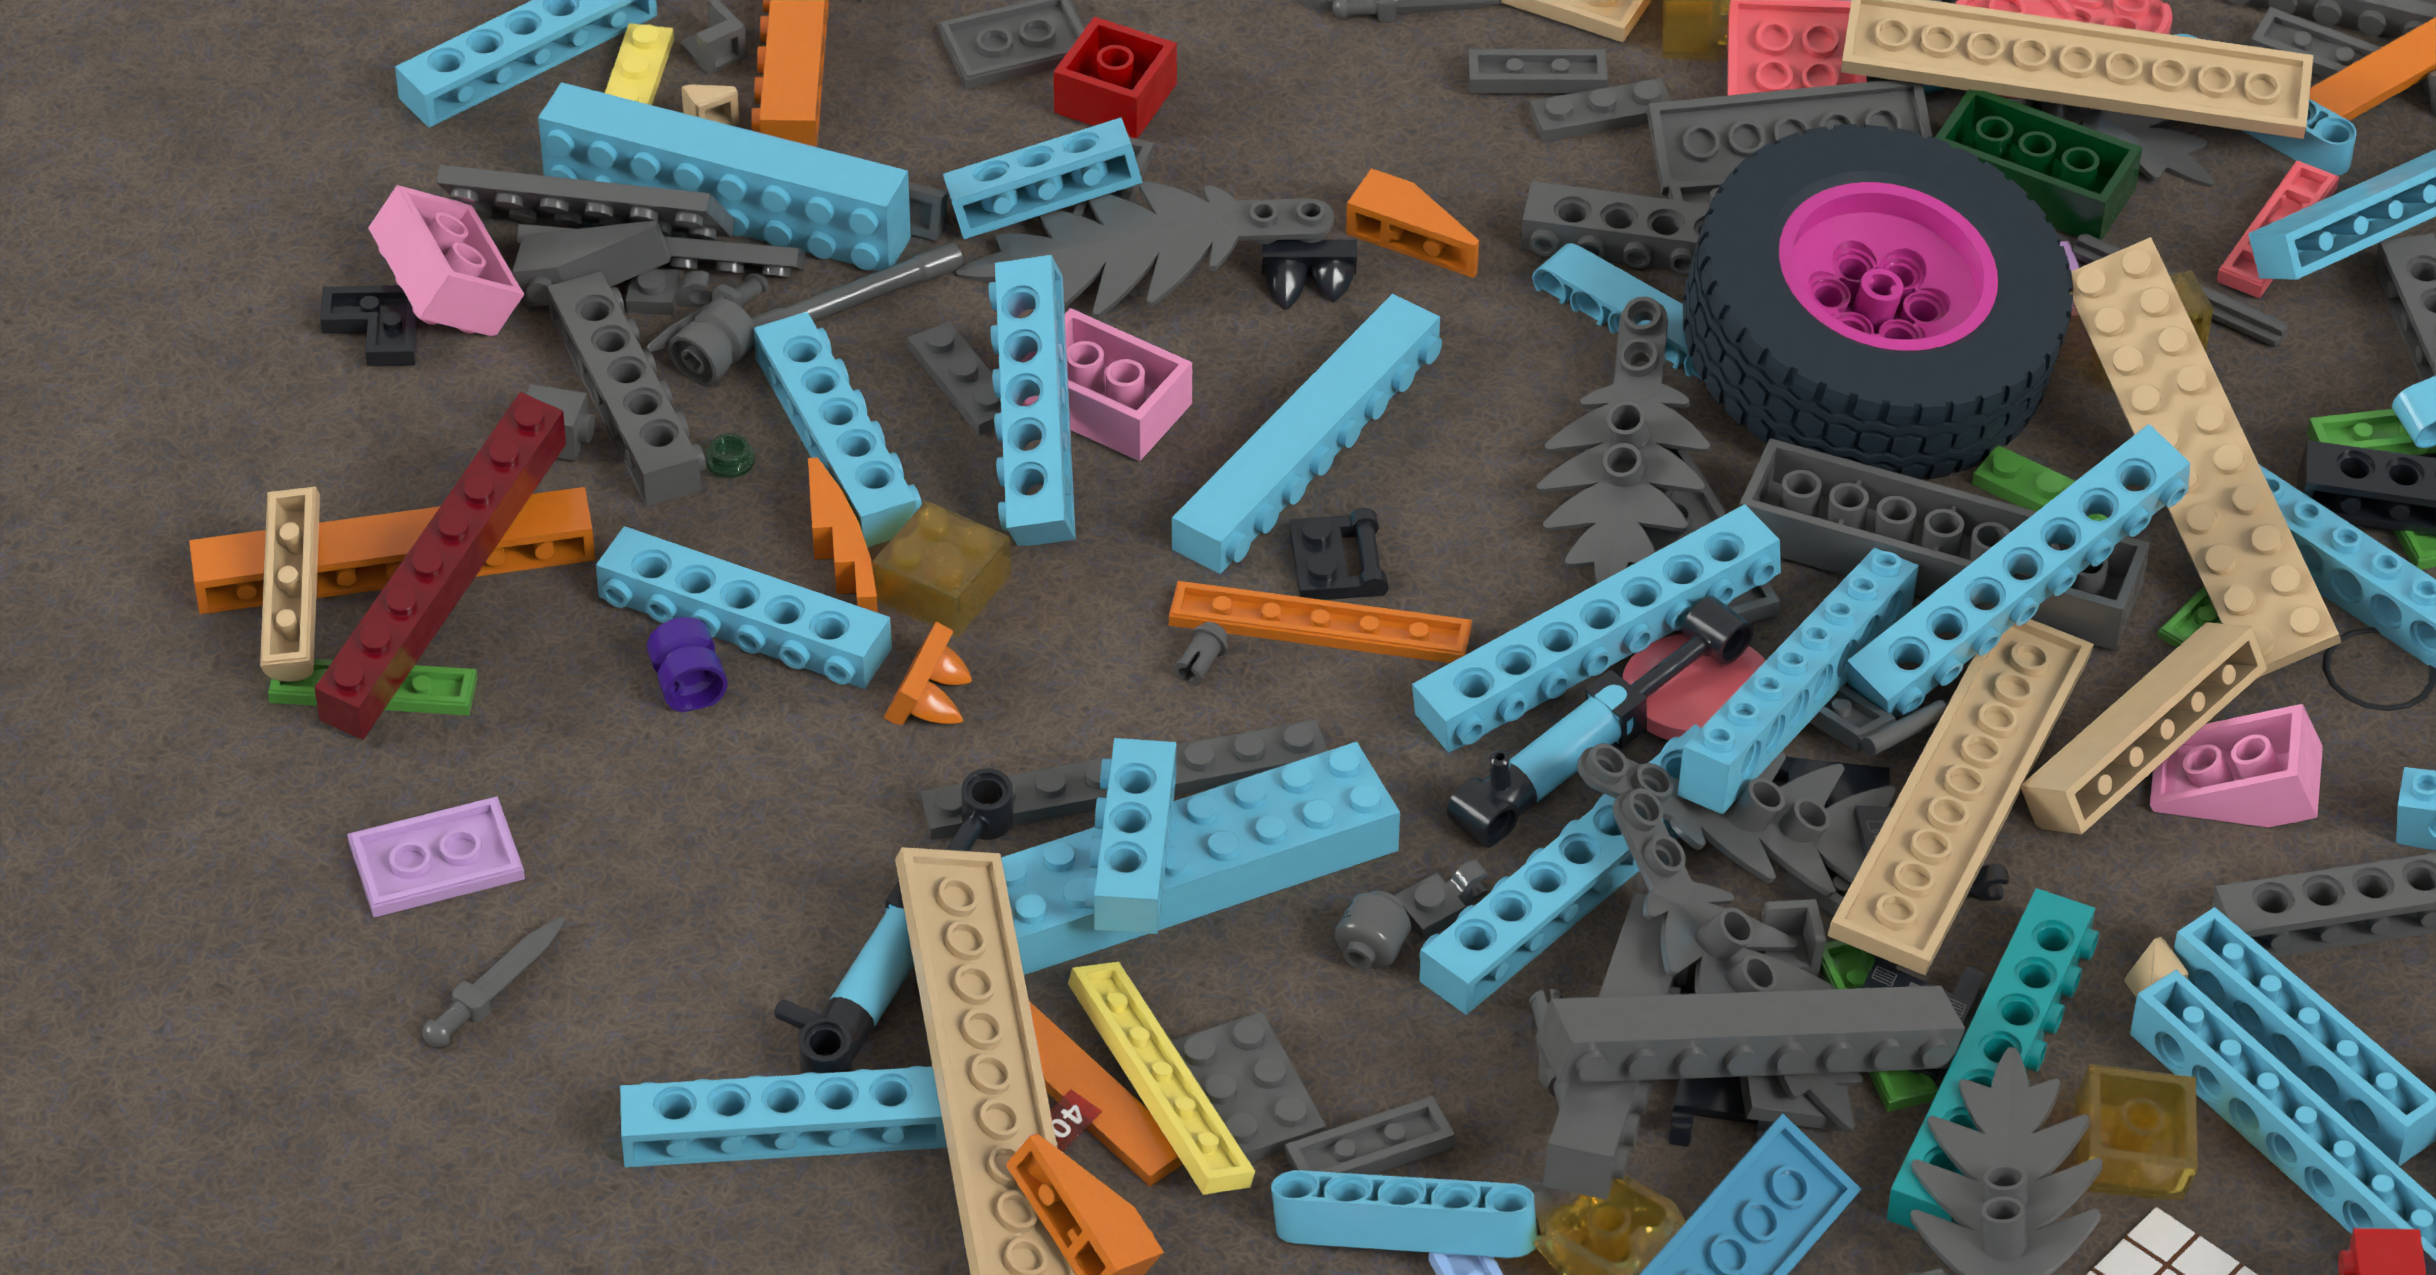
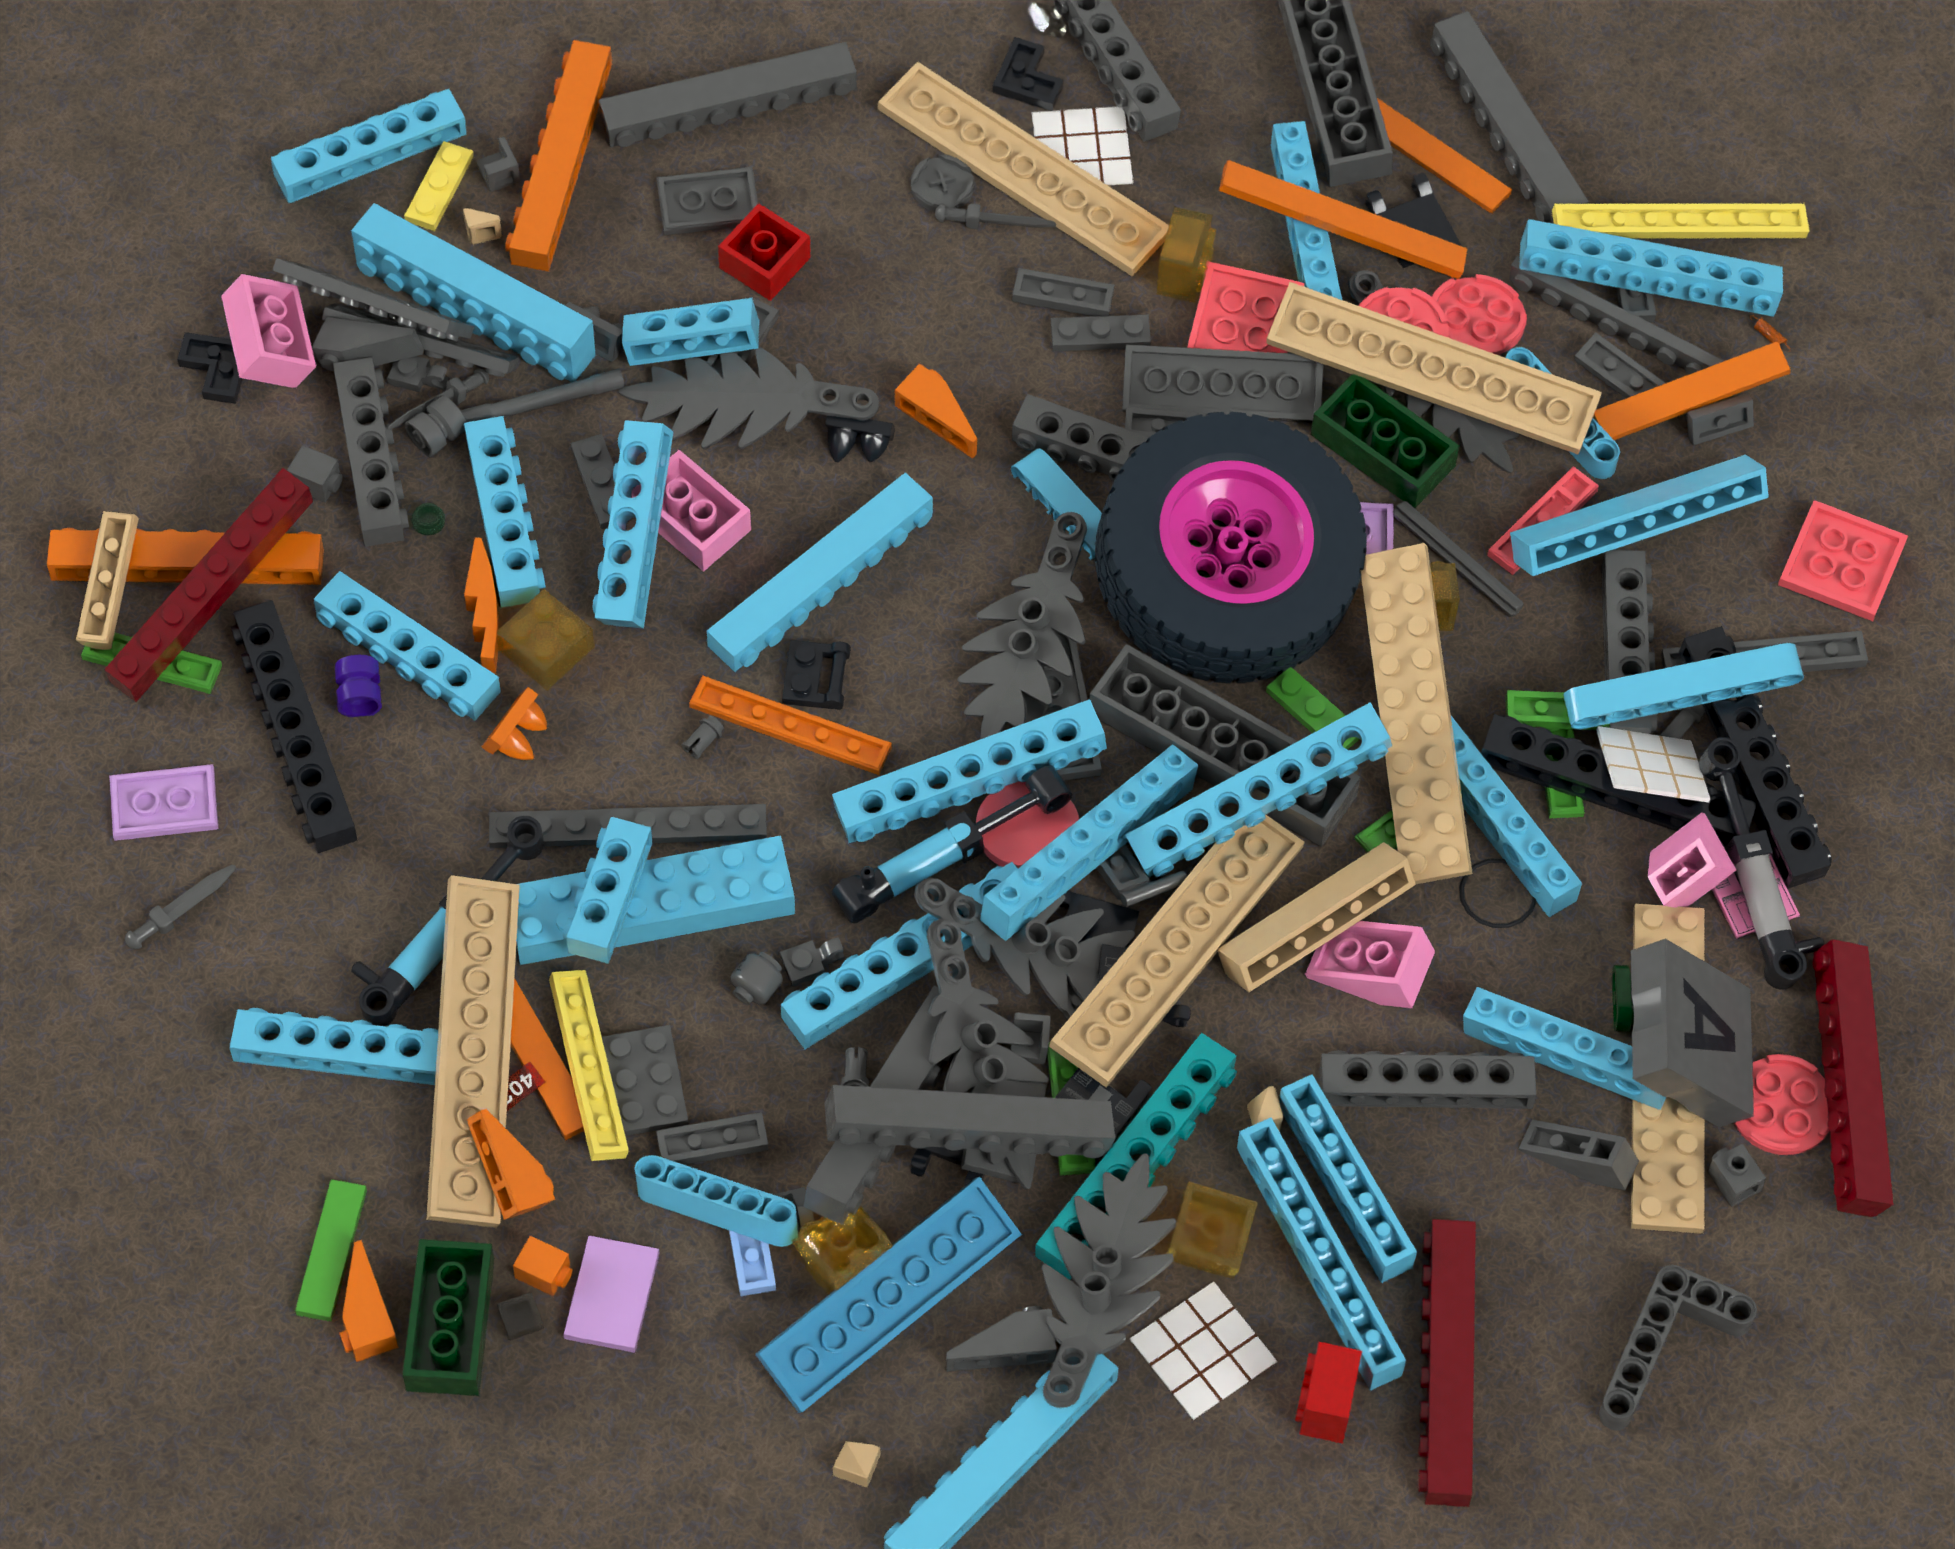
camera: 10 degrees right, 15 degrees up
(607, 731) = (263, 624): none -> black brick

